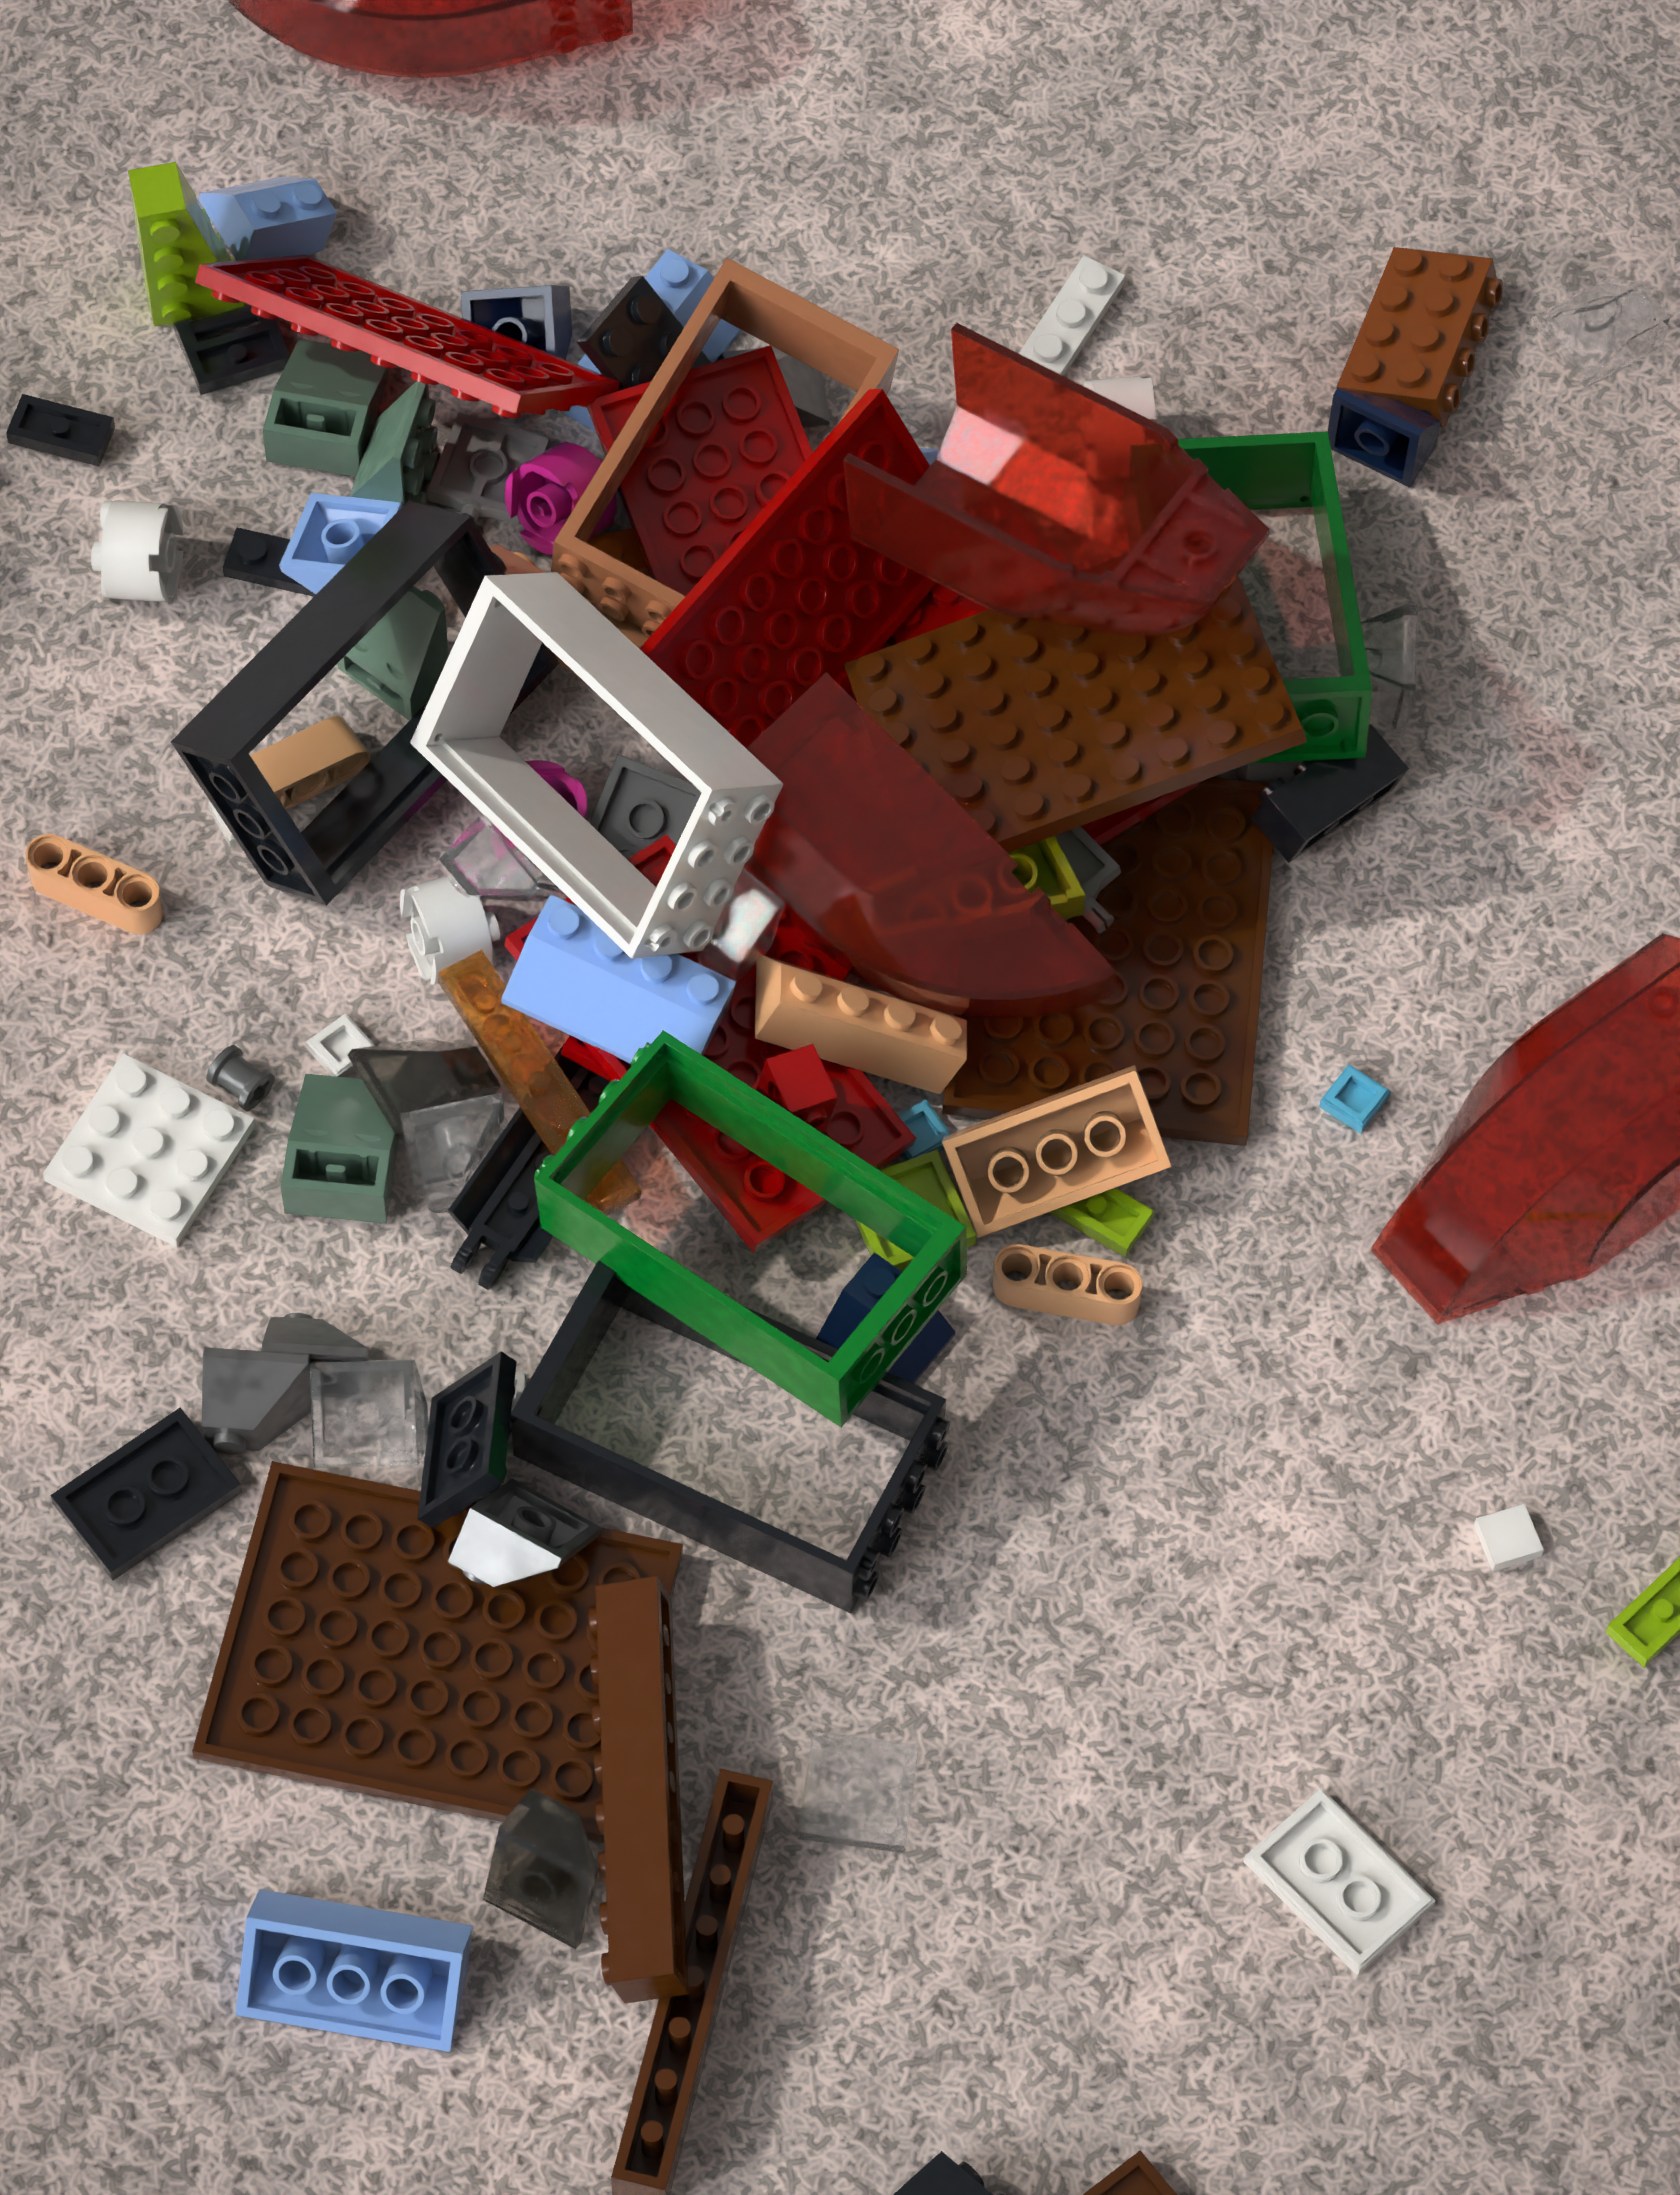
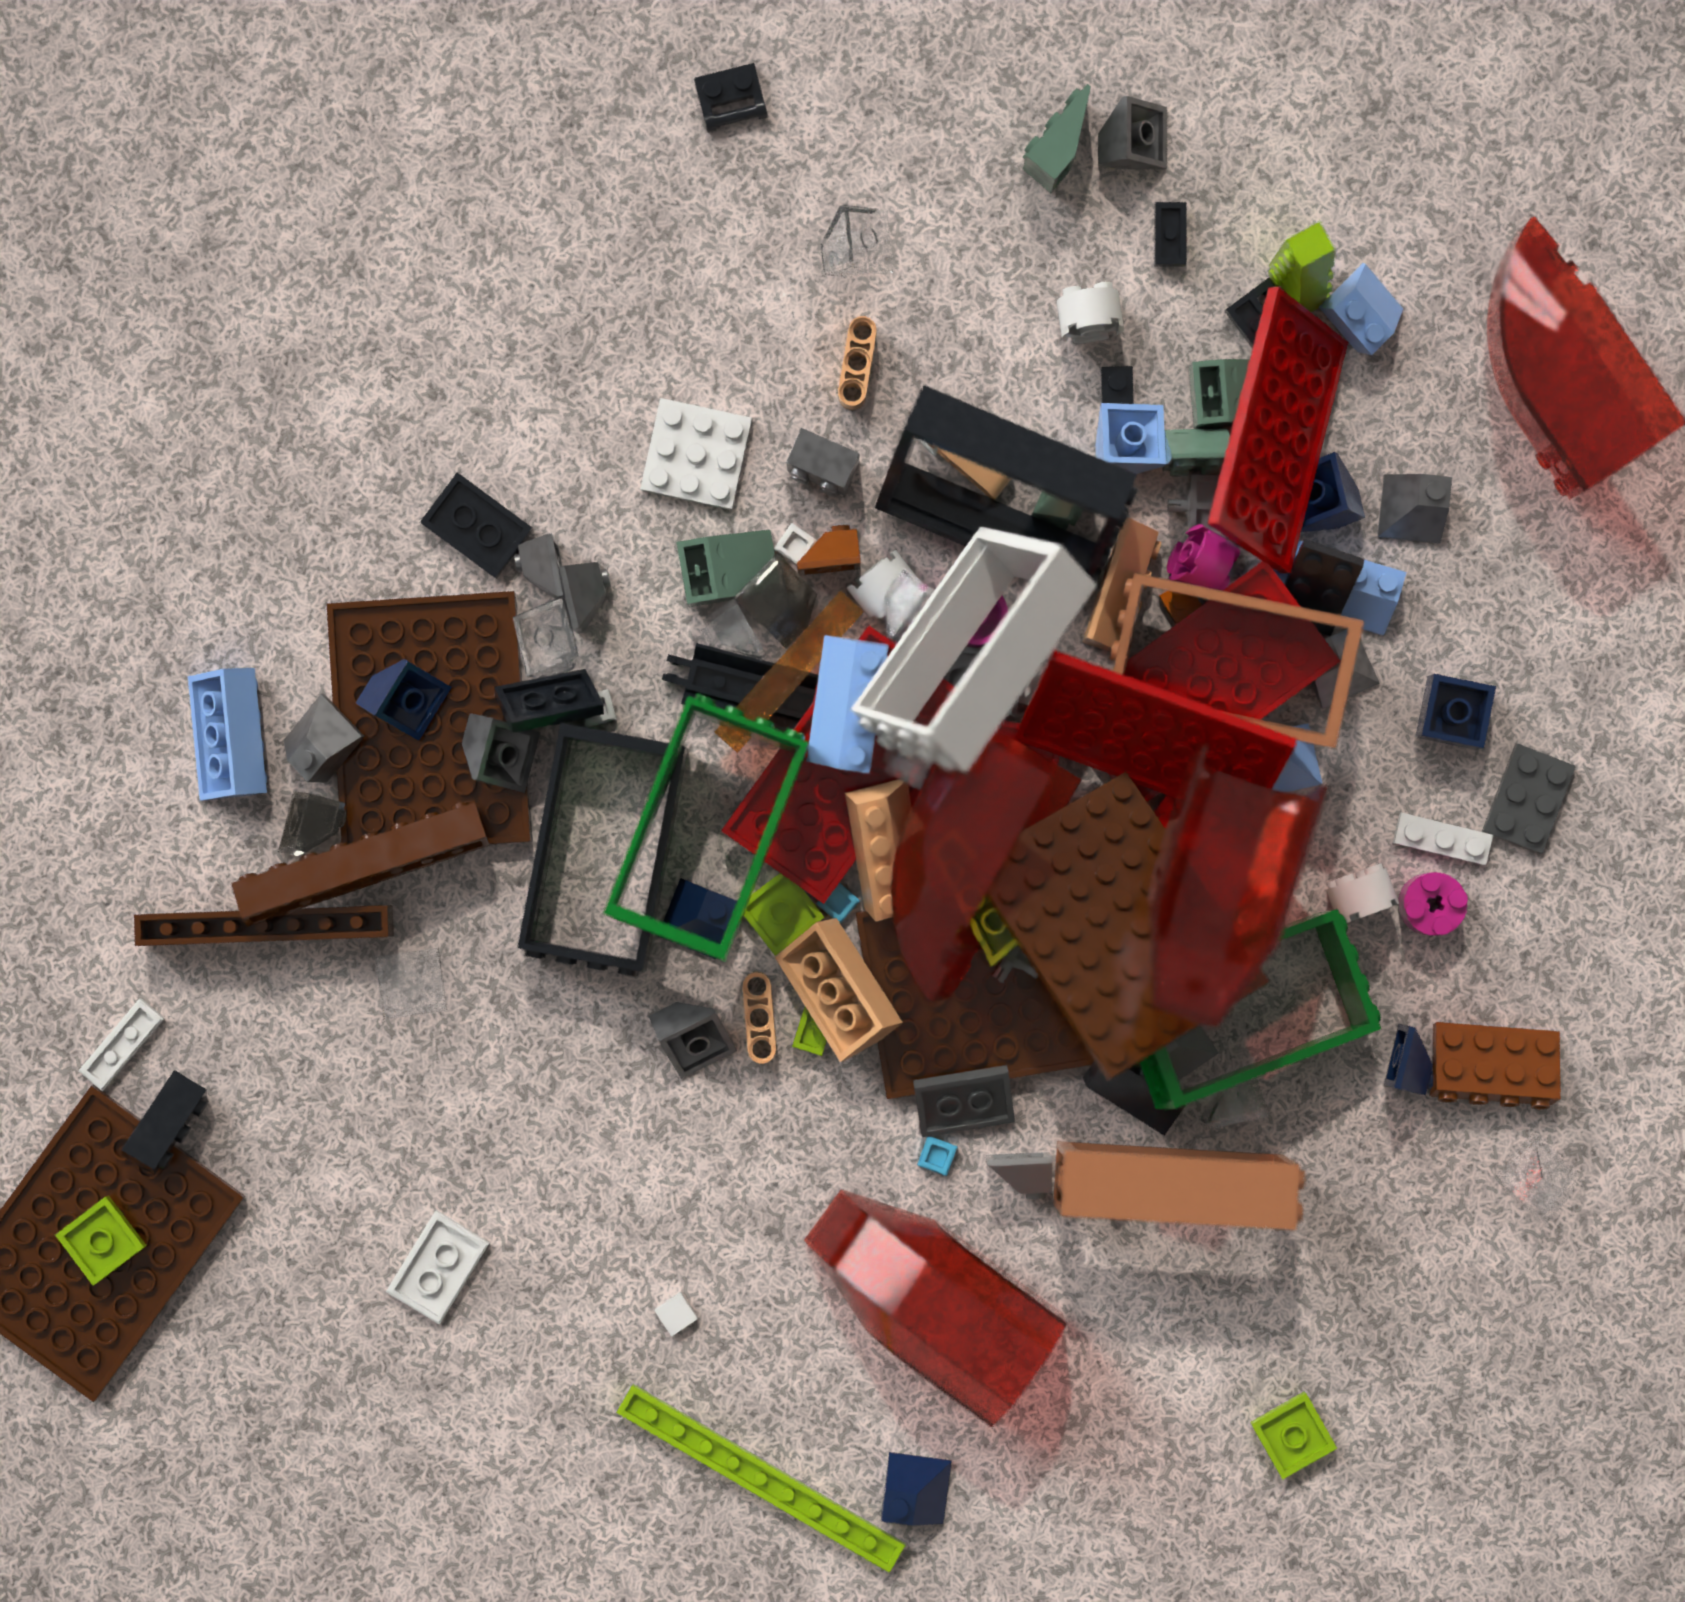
camera: 80 degrees right, 25 degrees up
(230, 959) = (822, 462): none -> flat silver brick
(240, 1077) = (754, 492): dark grey bush -> none
(375, 981) = (832, 552): none -> dark orange slope
(387, 1660) = (404, 697): none -> dark blue slope
(412, 1814) = (321, 741): none -> flat silver slope
(574, 228) = (1414, 507): none -> flat silver slope
(800, 1086) = (805, 830): red brick -> none
(890, 248) = (1455, 711): none -> dark blue brick
(1044, 202) = (1528, 798): none -> dark grey plate
(1067, 1389) = (691, 1036): none -> flat silver slope
(1166, 341) = (1450, 901): none -> dark pink brick
(1280, 1027) = (964, 1101): none -> dark grey plate
(1415, 971) = (1025, 1172): none -> light grey slope
(1486, 750) = (1177, 1185): none -> nougat door

